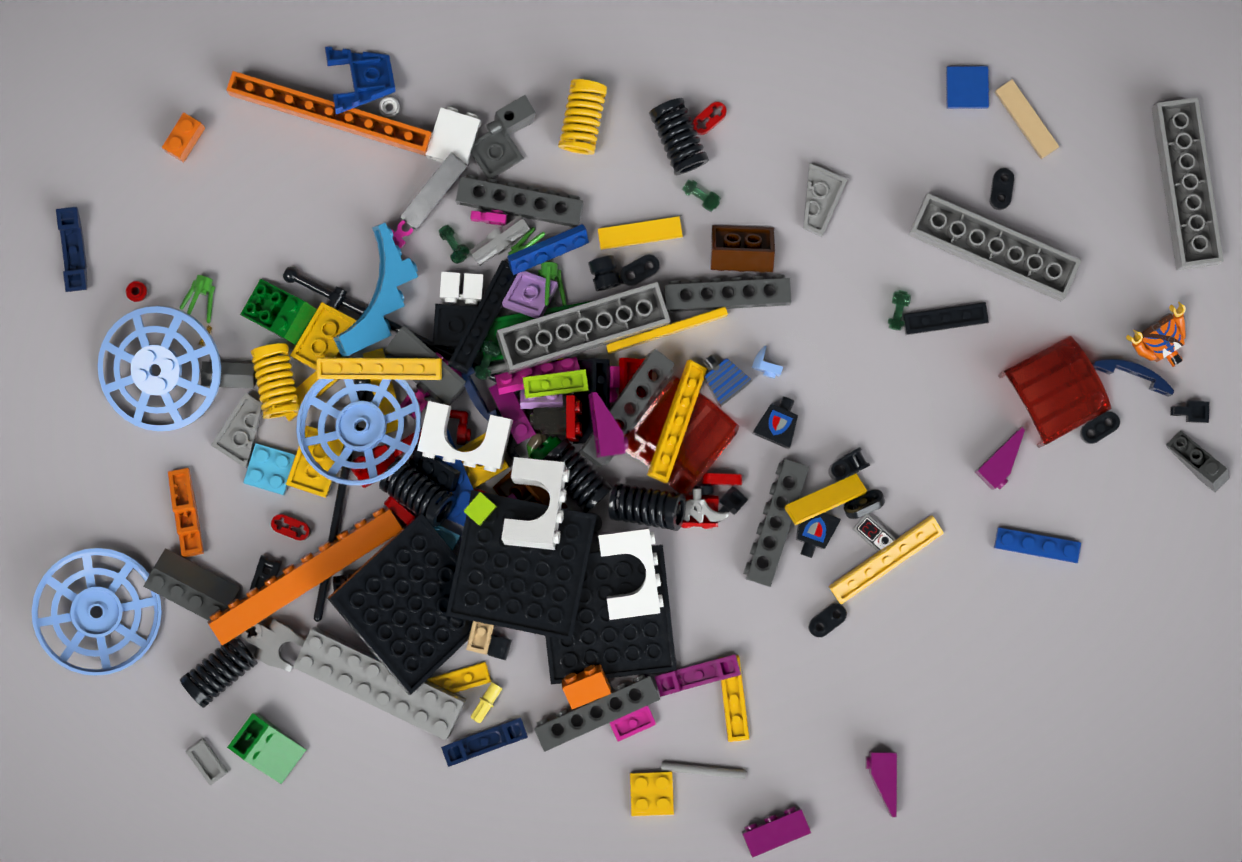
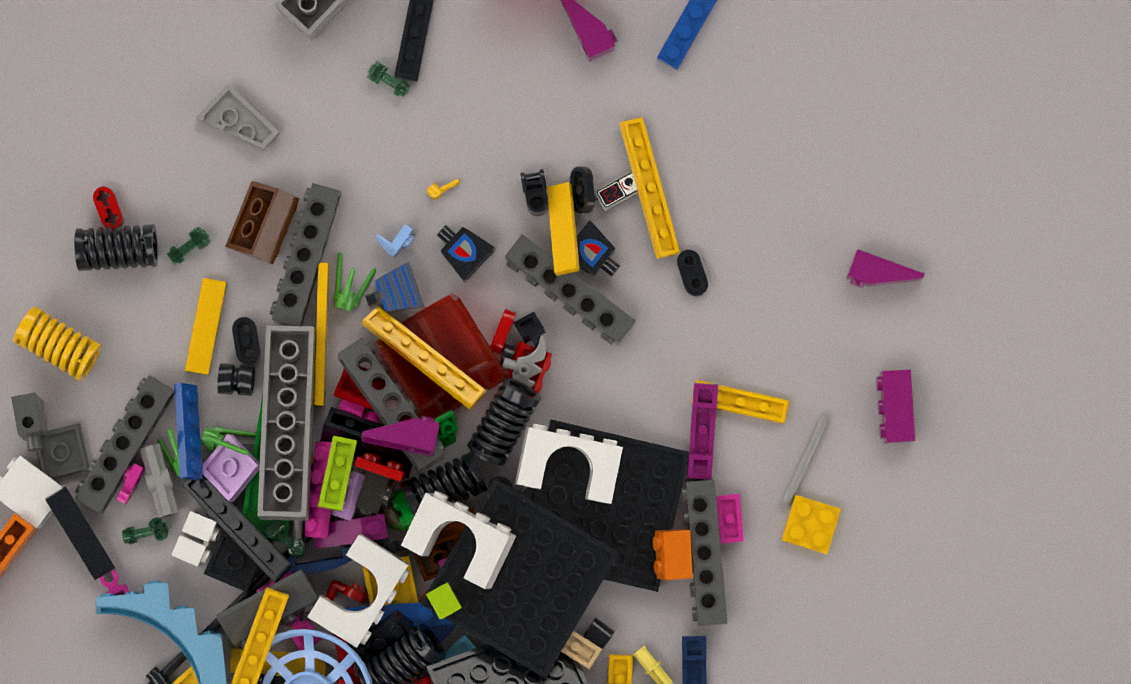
camera: 65 degrees left, 0 degrees up
(624, 461) = (447, 428): none -> green slope
(702, 339) = (345, 299): none -> bright green plant
(819, 382) = (435, 191): none -> yellow hand

